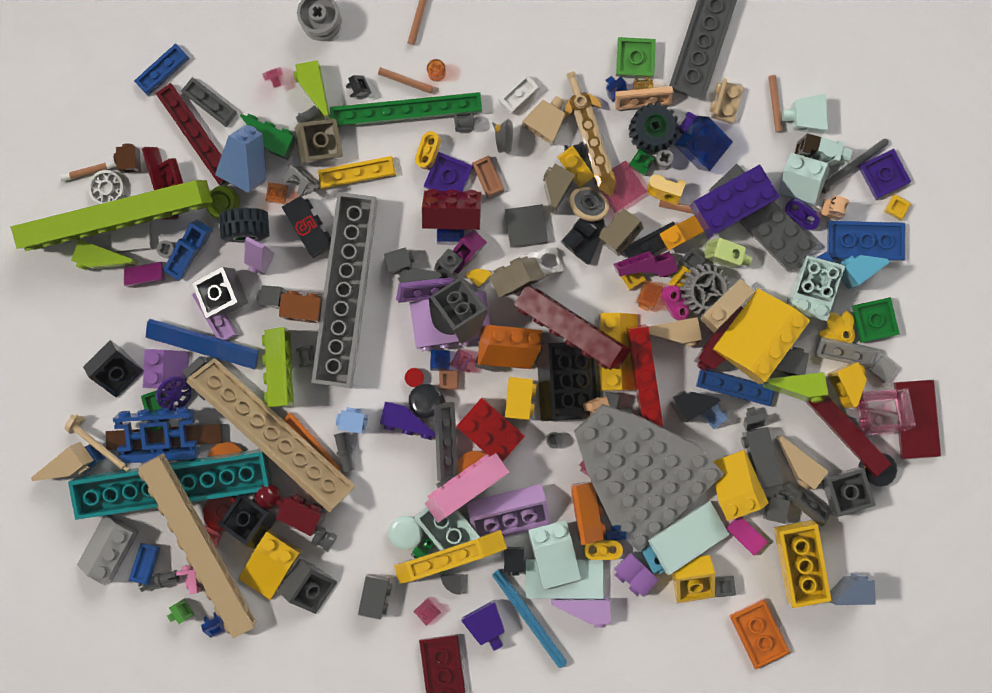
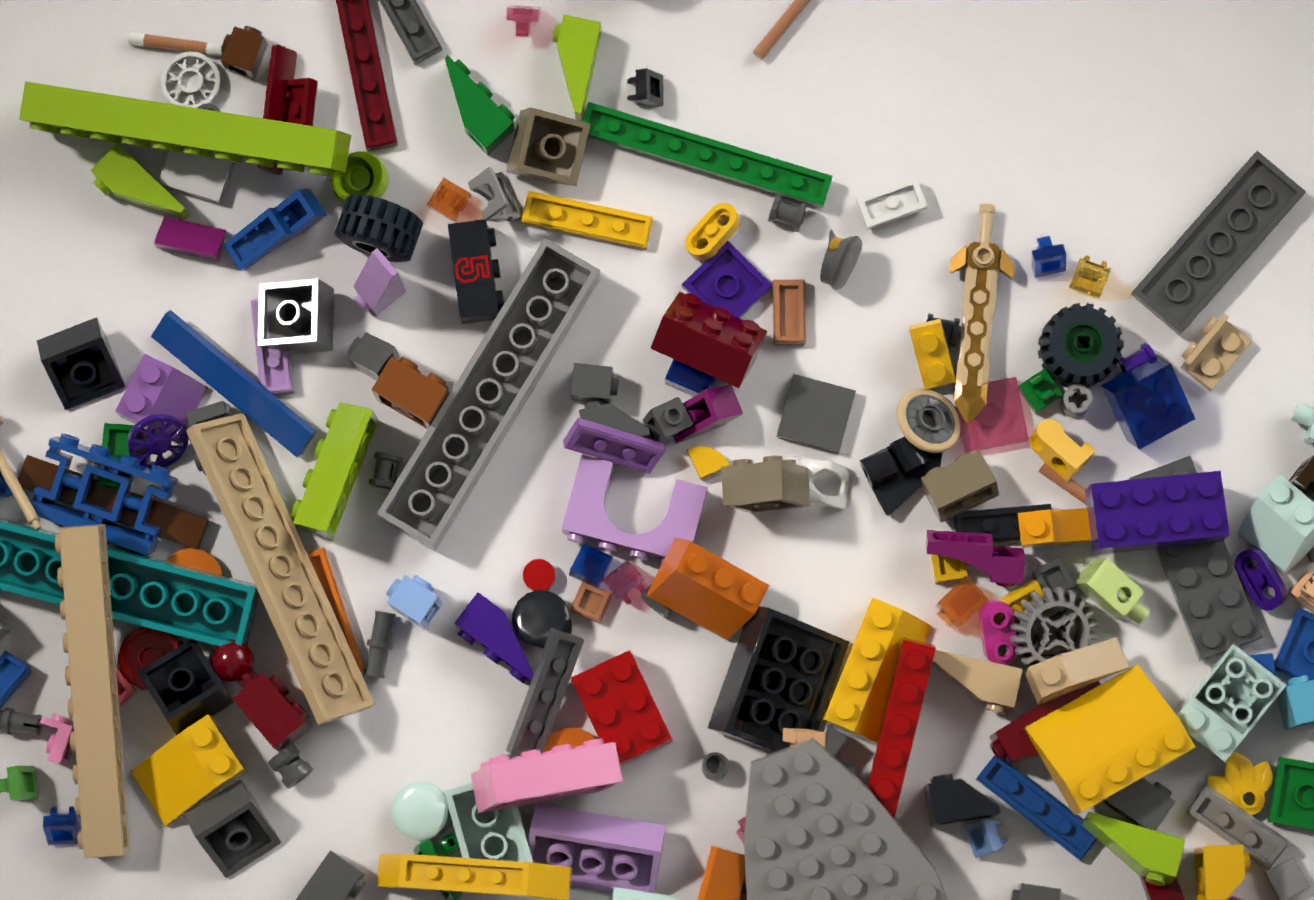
camera: 25 degrees right, 5 degrees down
(160, 247) = (233, 209): light grey bush -> none
(243, 159) = (421, 127): medium blue slope -> none
(308, 115) = (550, 100): dark grey pin -> none
(405, 80) = (724, 109): nougat bar -> none
(438, 67) = (779, 106): clear orange wheel -> none
(460, 309) = (656, 498): dark grey slope -> none
(519, 398) = (685, 675): yellow brick -> none
(545, 119) = (917, 262): tan torso -> none
(557, 185) = (890, 371): dark tan slope -> none
(572, 327) = (816, 600): dark red brick -> none
(635, 57) = (1100, 223): bright green plate -> none
(637, 98) = (1081, 289): light nougat tile -> none
(753, 419) = (1044, 870): dark grey tile -> none
(775, 103) = (1292, 388): nougat bar -> none

